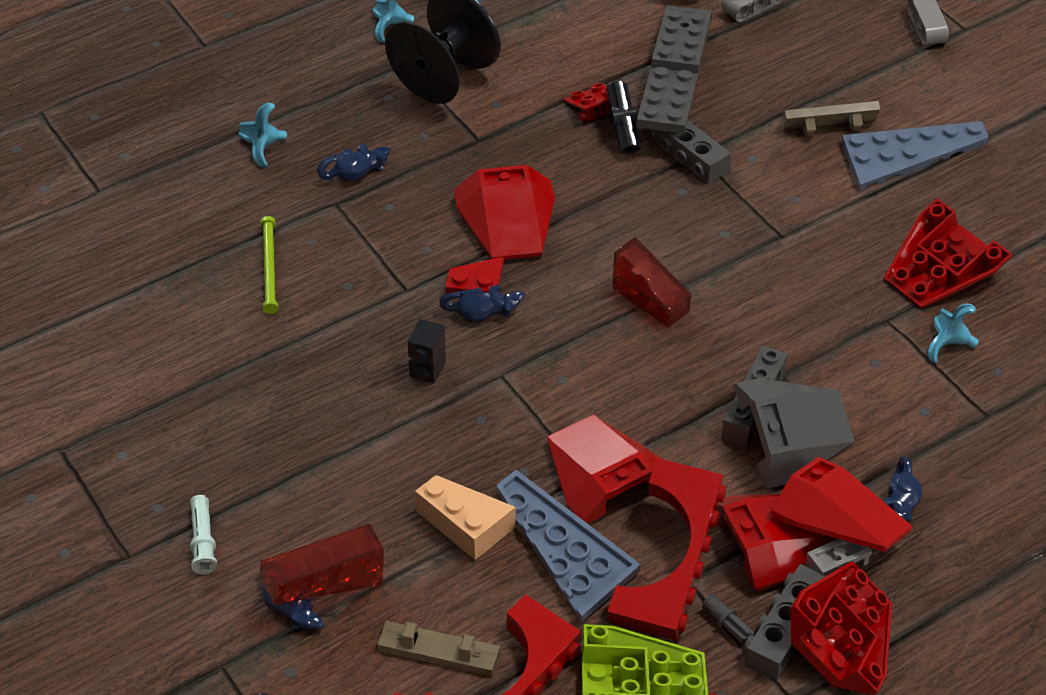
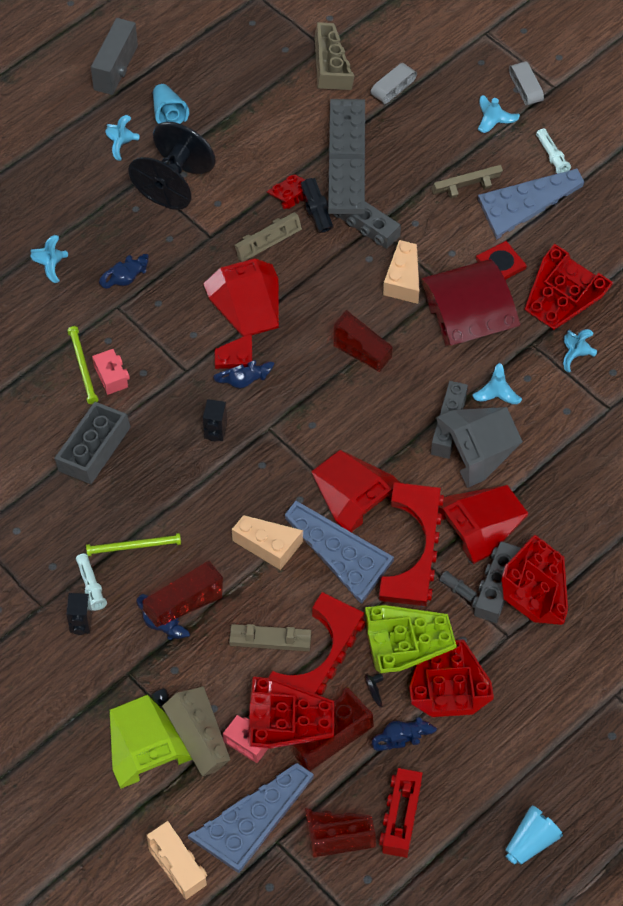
camera: 10 degrees left, 10 degrees up
(171, 570) = (79, 613): none -> black piece
(253, 357) = (92, 442): none -> dark grey brick
(275, 495) = (133, 544): none -> lime bar
(303, 276) = (110, 371): none -> coral brick
(553, 146) = (268, 237): none -> dark tan hinge
(722, 212) = (402, 275): none -> light nougat wedge
(810, 255) = (470, 302): none -> dark red slope
(830, 367) = (497, 388): none -> medium azure piece
(836, 555) = (524, 530): light grey hinge -> none
(838, 505) = (519, 496): red wedge -> none
(860, 217) = (505, 258): none -> red tile
(879, 47) = (494, 114): none -> medium azure piece
(904, 490) = (560, 480): dark blue animal -> none
(954, 104) = (555, 156): none -> light aqua pin

